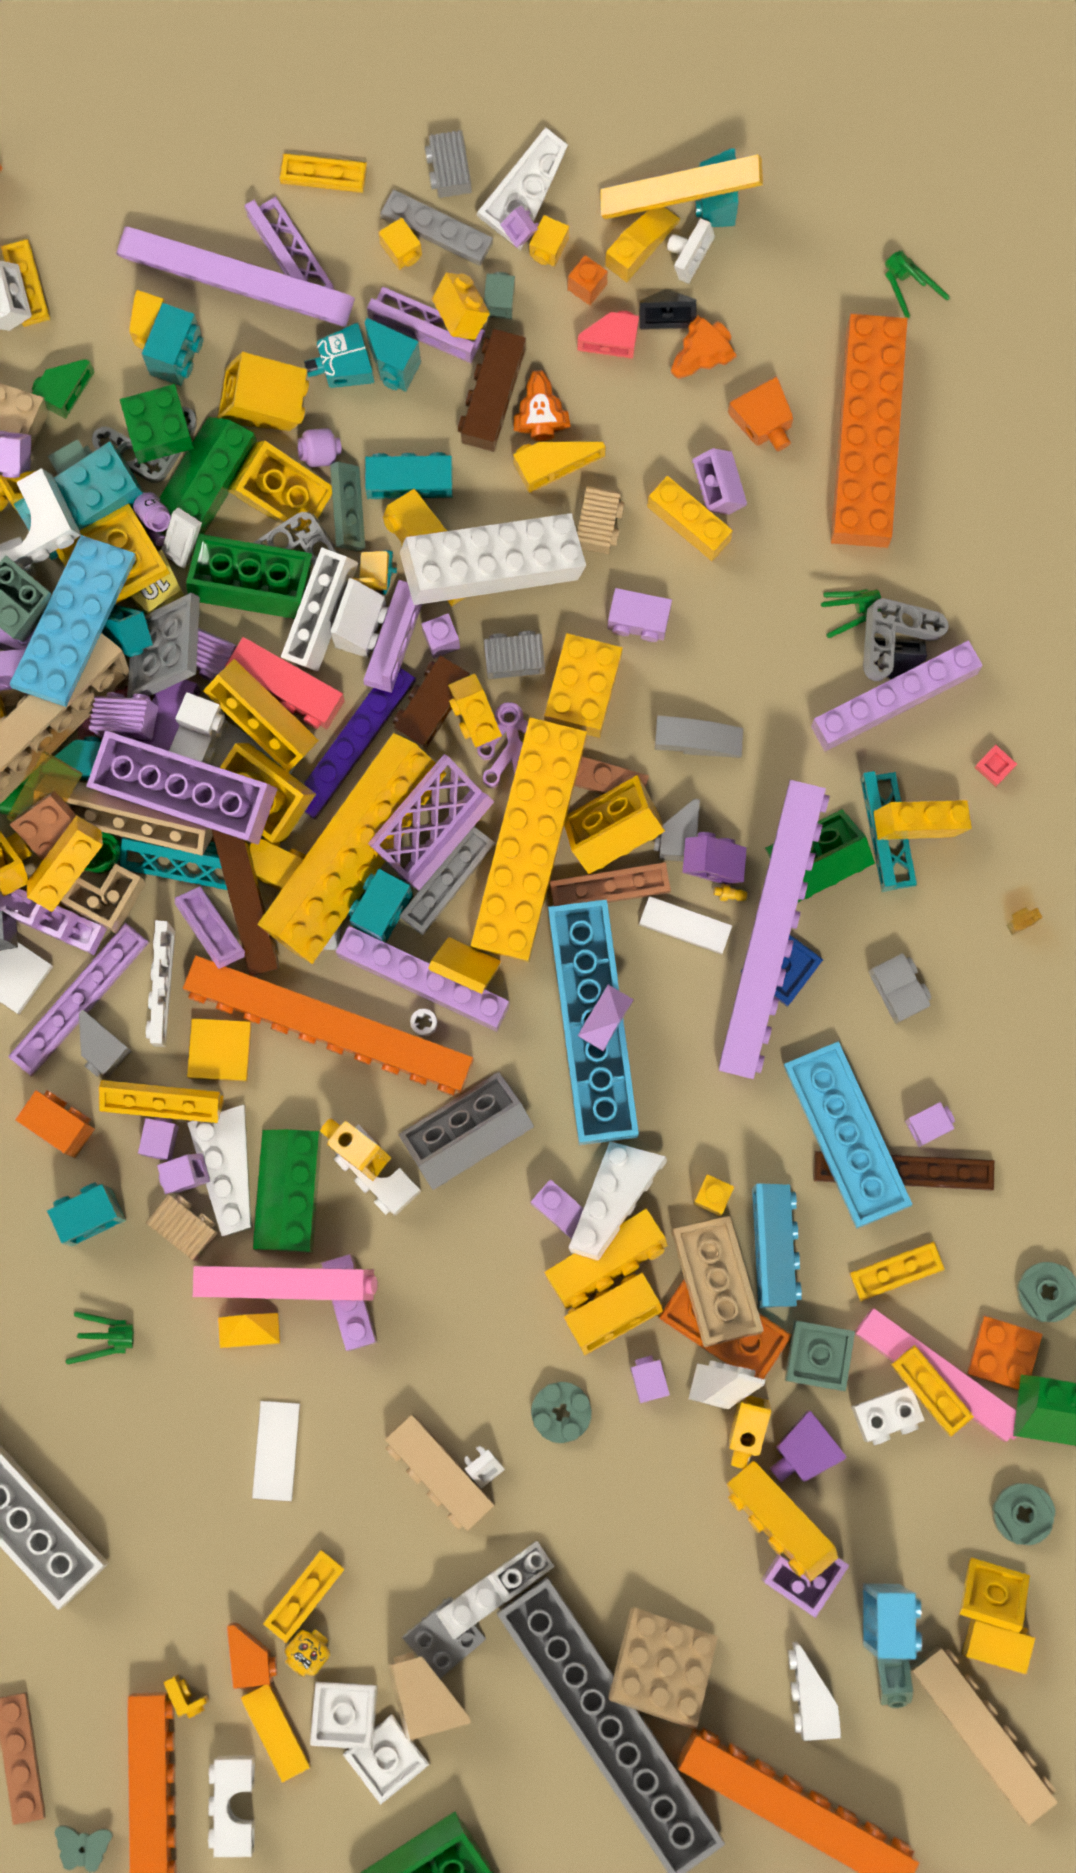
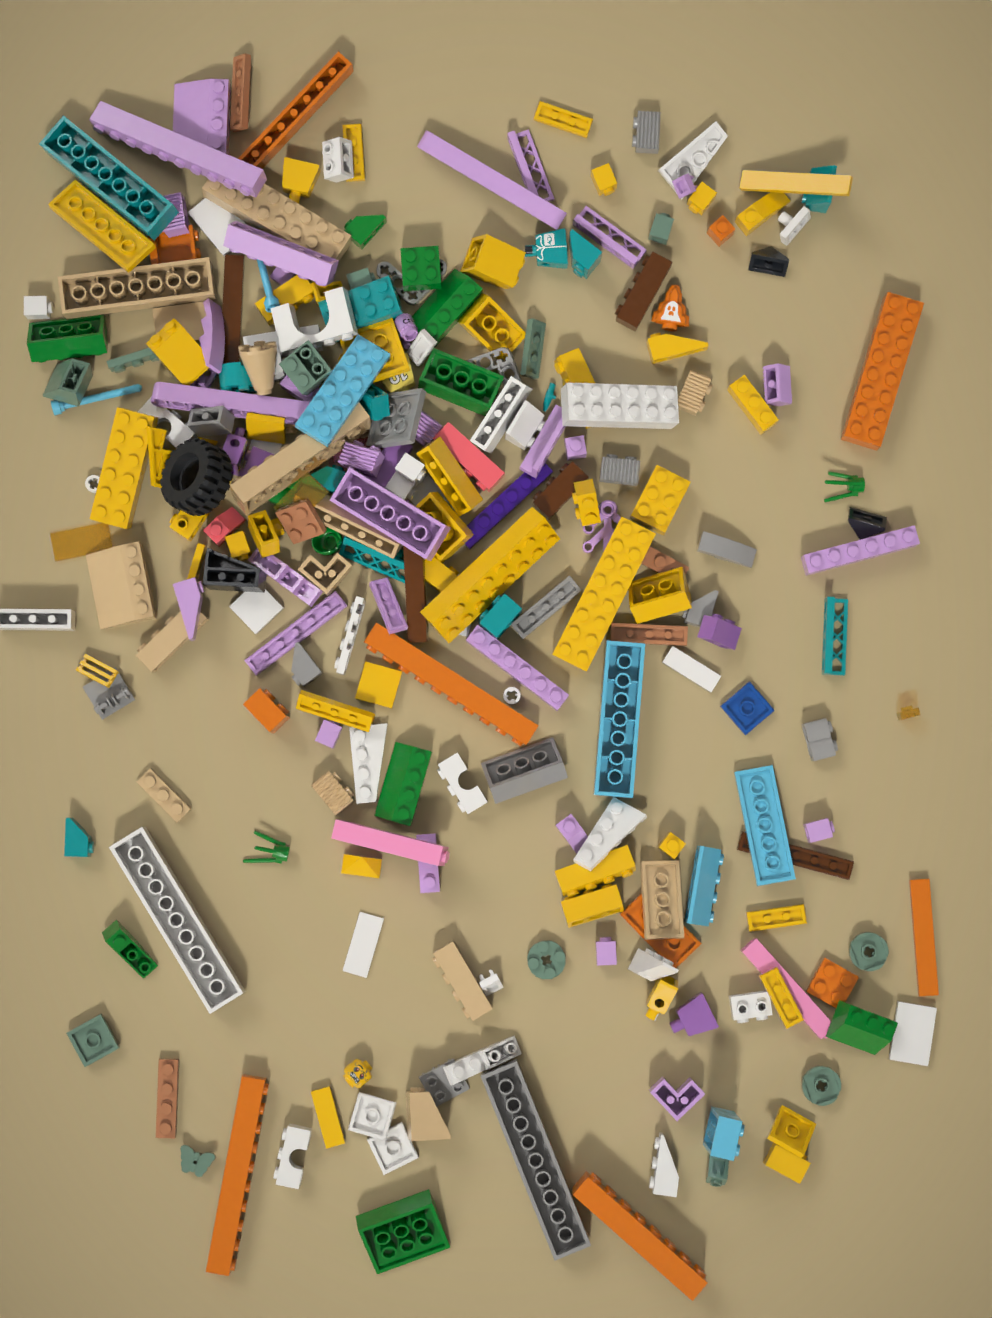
camera: 10 degrees right, 5 degrees up
(64, 863) = (305, 546): yellow brick -> none
(85, 1214) = (274, 772): teal brick -> none
(143, 316) = (429, 198): yellow slope -> none
(172, 344) = (441, 217): teal brick -> none
(179, 1692) = (273, 1081): yellow bracket -> none
(183, 1173) = (340, 759): lavender brick -> none
(249, 1659) = (321, 1069): orange slope -> none
(304, 1596) = (362, 1038): yellow plate -> none
(318, 447) = (522, 305): lavender head -> none
(362, 1151) = (456, 772): yellow torso -> none
(374, 570) = (540, 395): yellow bracket -> none
(396, 475) = (577, 335): teal brick -> none
(438, 227) = (630, 173): light grey plate -> none
(443, 835) = (550, 578): lavender fence -> none
(460, 306) = (634, 231): yellow brick -> none
(464, 965) = (545, 665): yellow tile -> none
(605, 1017) = (628, 719): lavender slope -> none
(611, 335) = (729, 271): coral slope -> none
(639, 615) = (706, 461): lavender brick -> none
(663, 1668) = (576, 1131): tan plate -> none
(703, 348) = (786, 292): orange rock -> none
(726, 892) = (722, 654): yellow piece -> none
(763, 414) = (816, 346): orange torso -> none
(772, 929) = (746, 685): lavender brick -> none
(781, 1521) = (669, 1057): yellow brick -> none
(819, 1355) = (716, 960): sand green plate -> none
(838, 853) = (787, 643): green slope -> none
(890, 626) = (864, 506): light grey beam -> none
(903, 267) = (929, 265): green plant -> none
(922, 819) = (858, 635): yellow brick -> none
(983, 1735) = (764, 1214): tan brick -> none
(995, 765) = (913, 609): coral plate -> none

